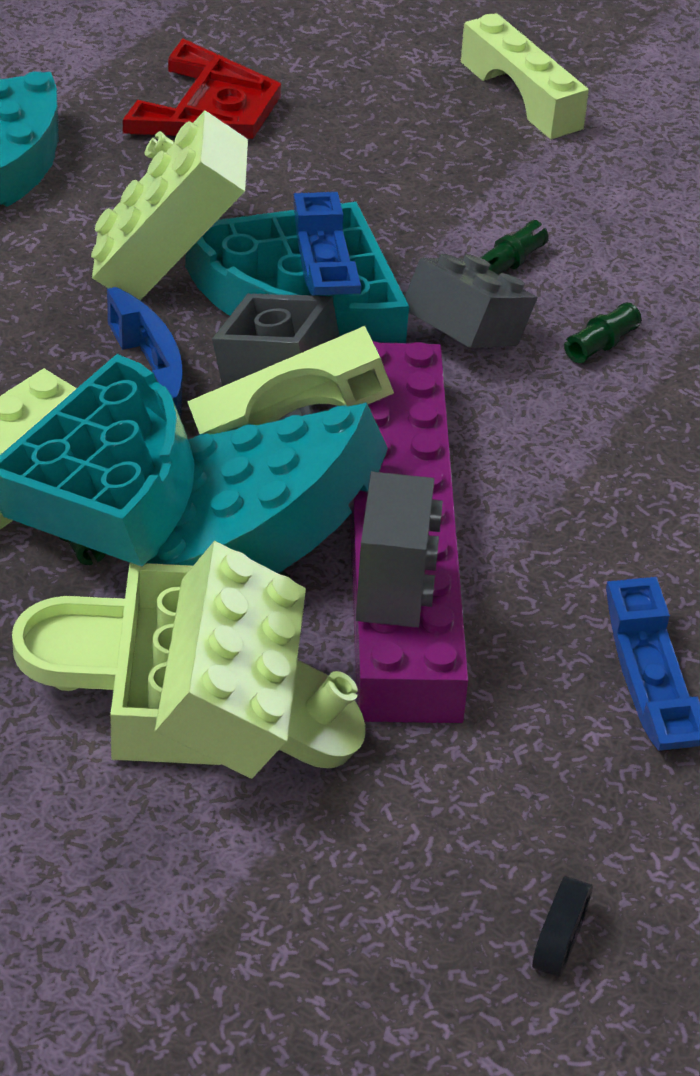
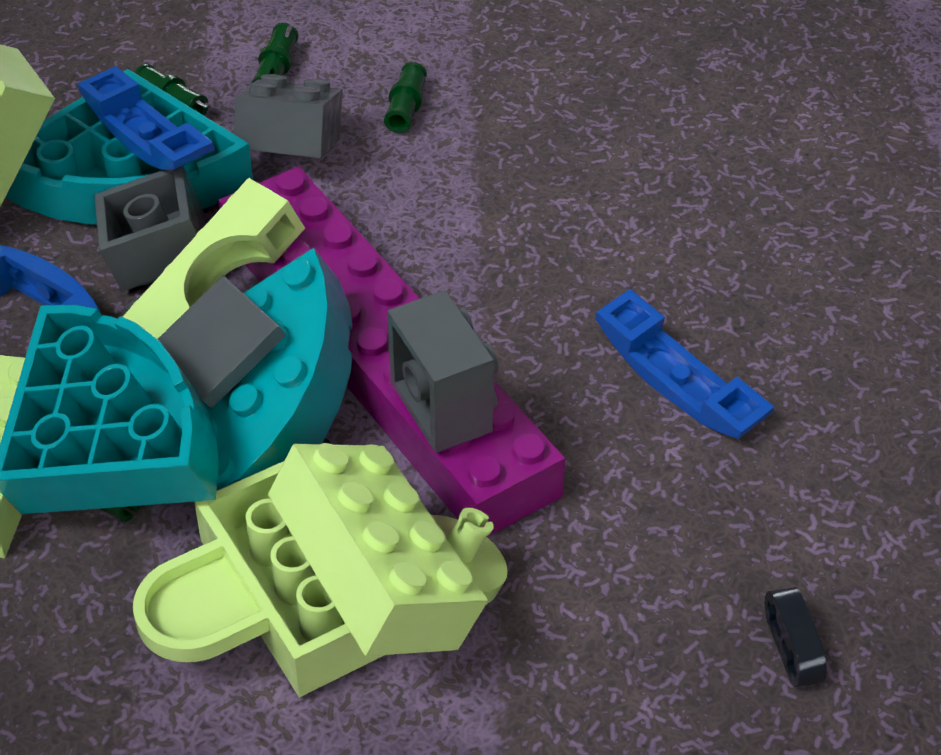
camera: 30 degrees left, 5 degrees up
(237, 445) = (220, 340): none -> dark grey tile
(394, 241) = (174, 86): none -> dark green pin

